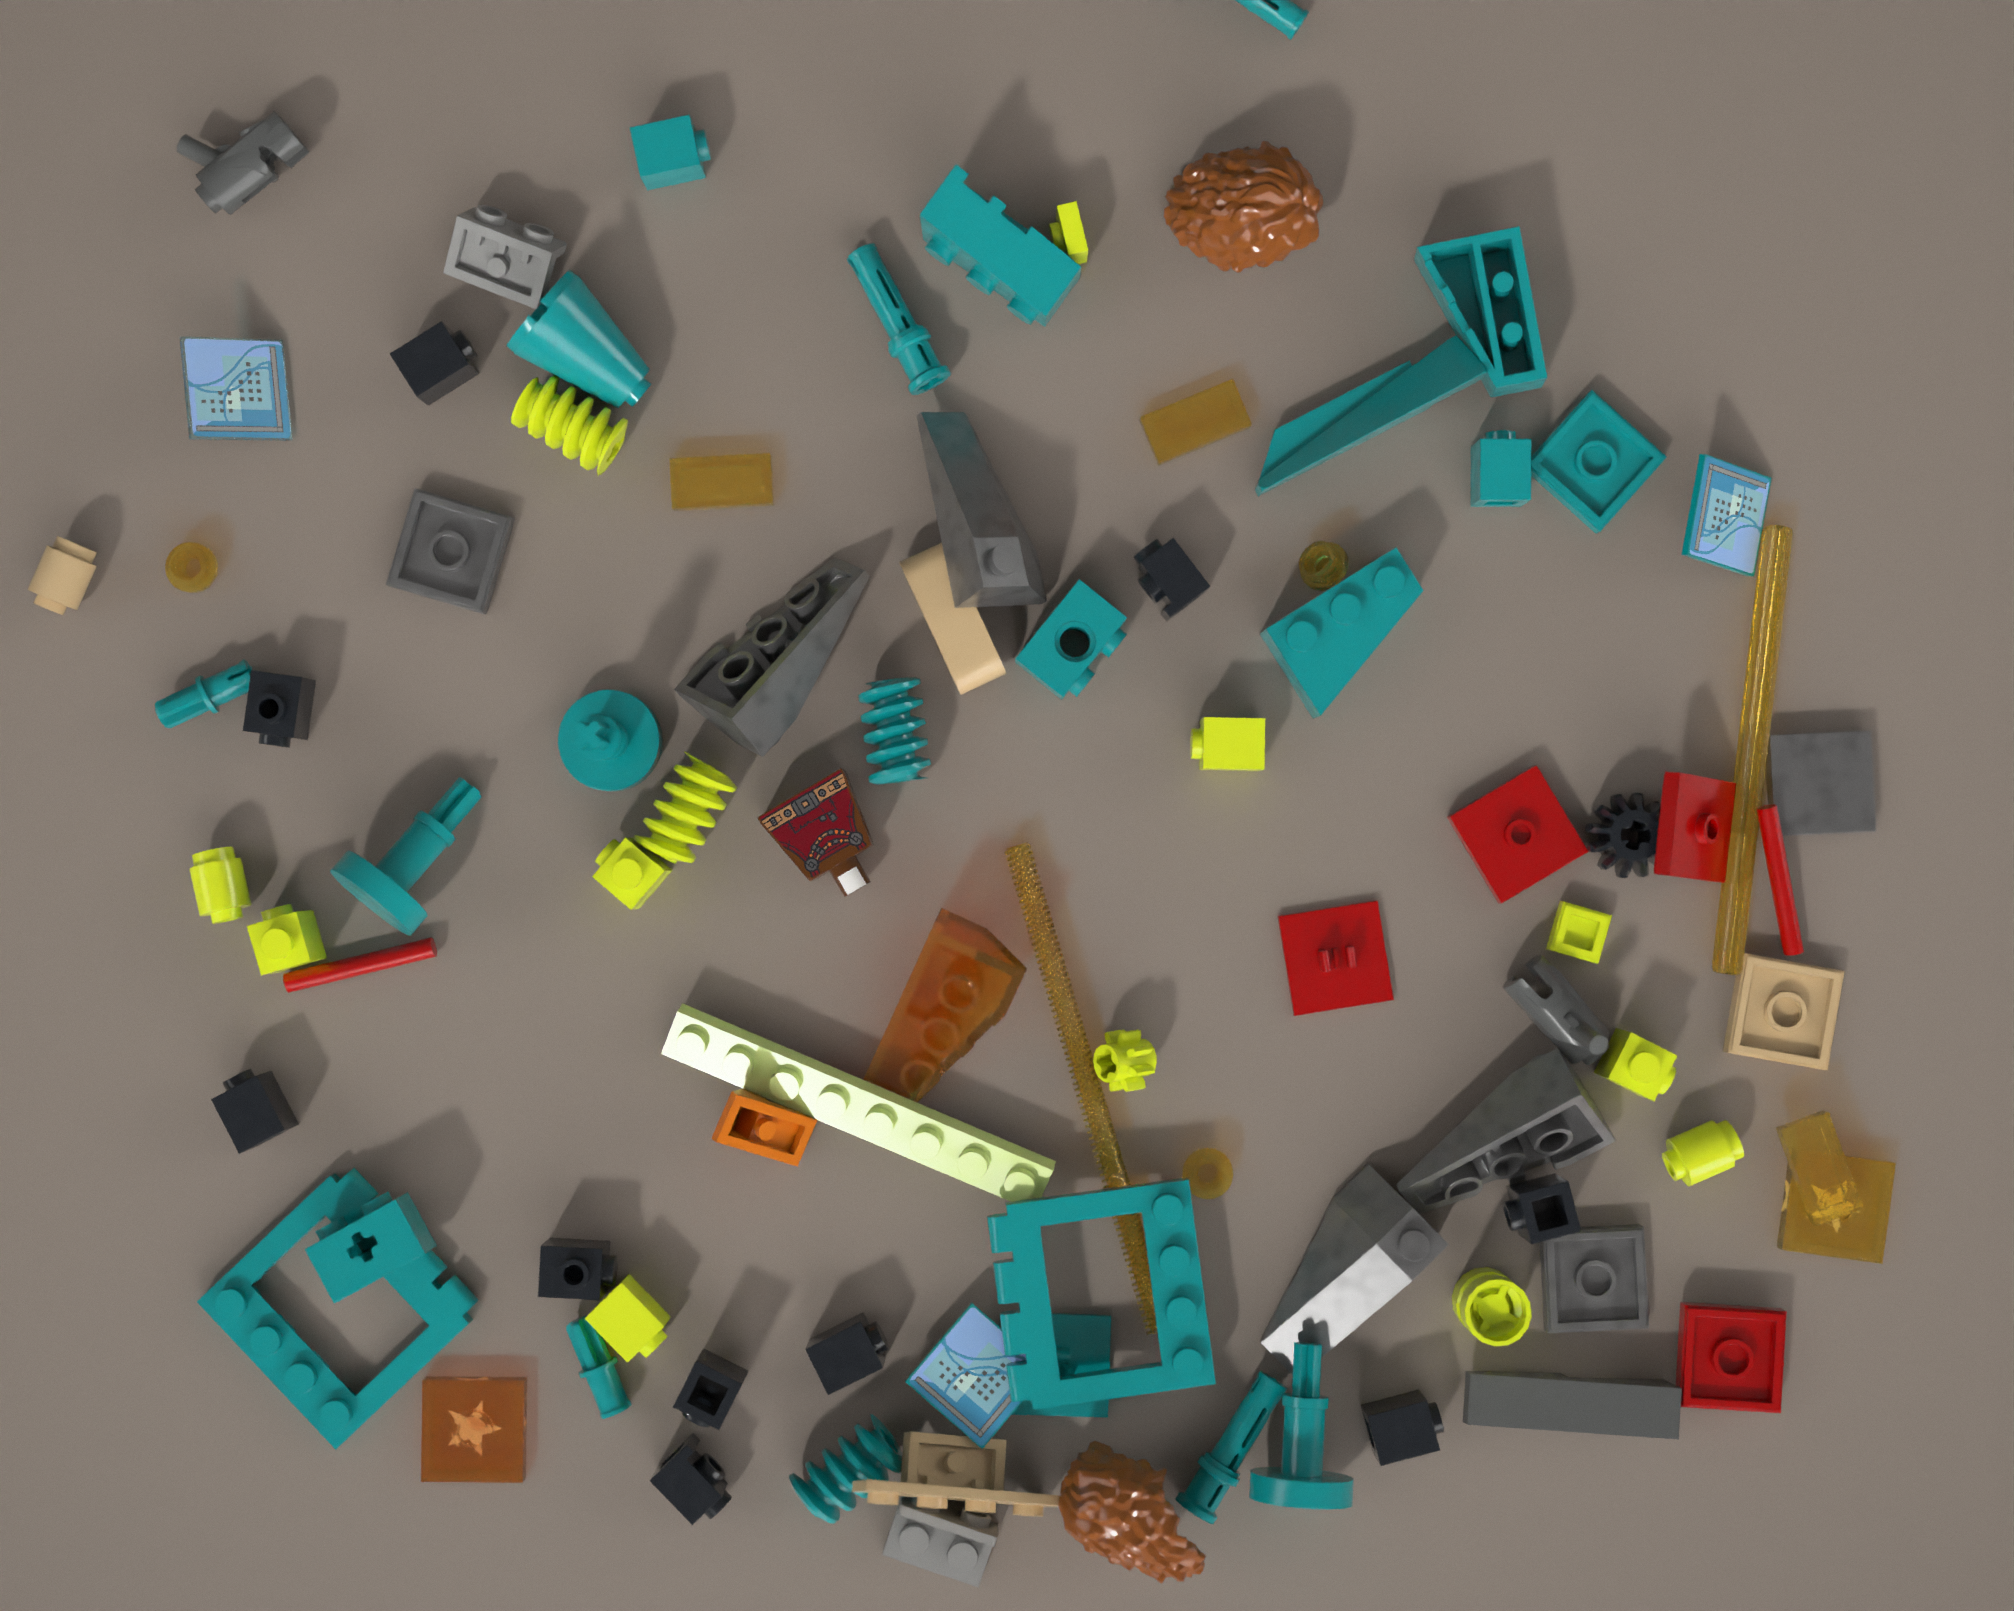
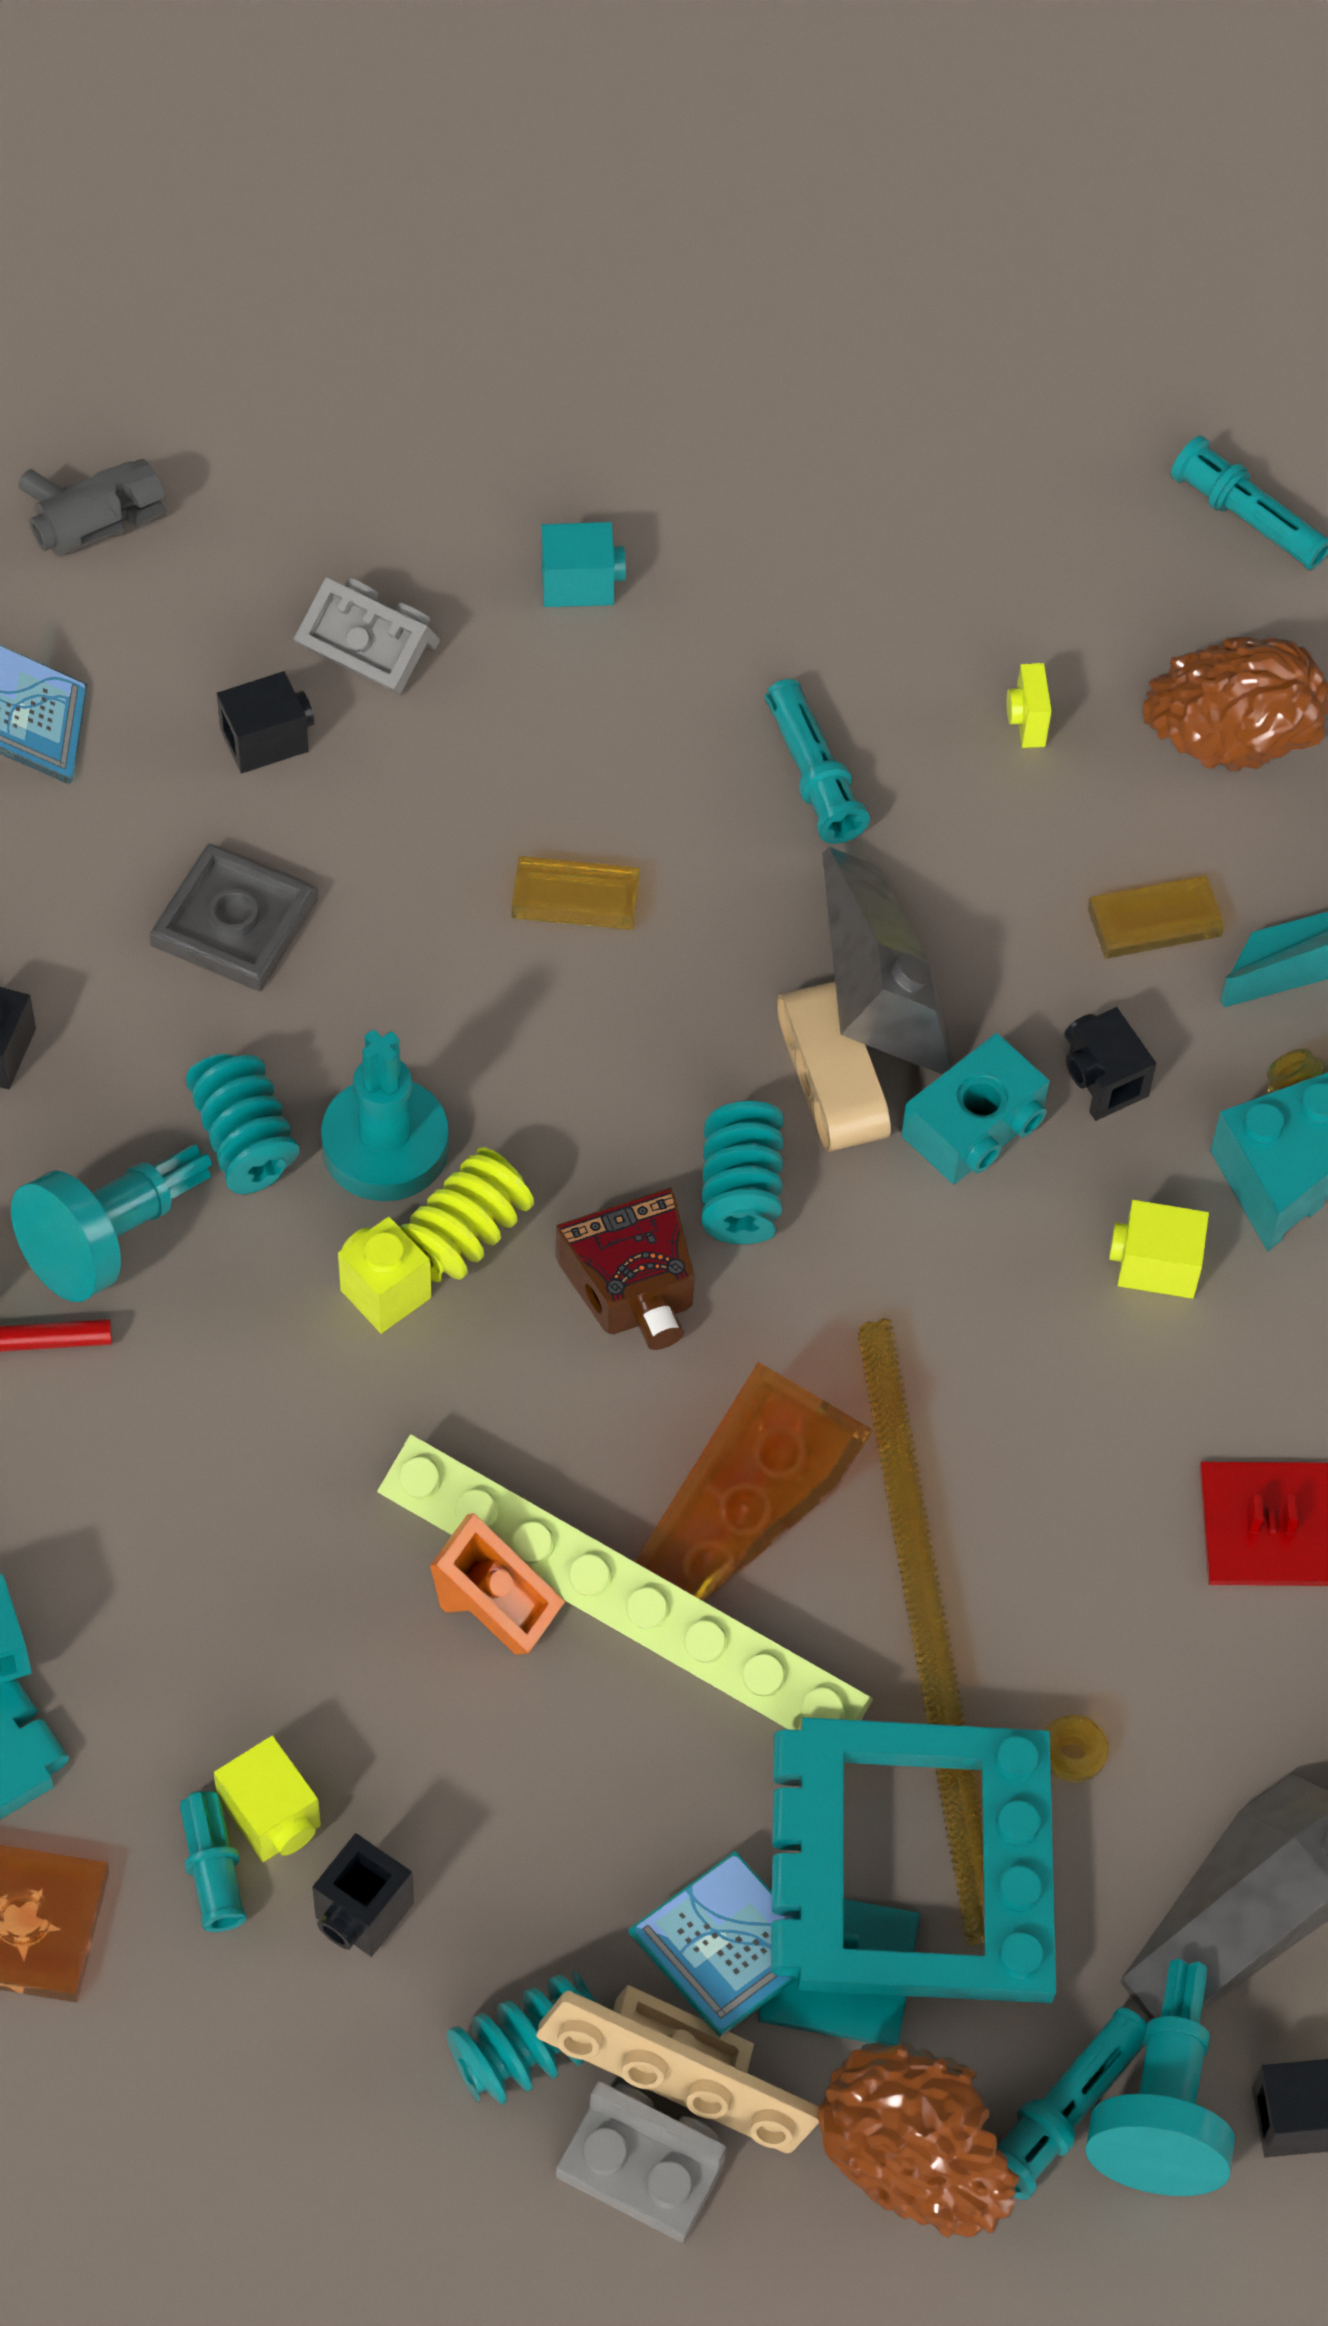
camera: 10 degrees right, 30 degrees down
(495, 752) = (242, 1120): none -> teal piece
(569, 424) = (407, 799): neon yellow piece -> none
(576, 1269) = (208, 1724): black brick -> none
(581, 344) = (438, 719): teal cone -> none
(692, 1482) = (310, 2022): black brick -> none
(767, 674) = (593, 1099): flat silver wedge -> none
(847, 1352) = (555, 1889): black brick -> none
(997, 250) = (940, 701): teal wedge -> none
(1125, 1060) = (982, 1583): neon yellow gear -> none

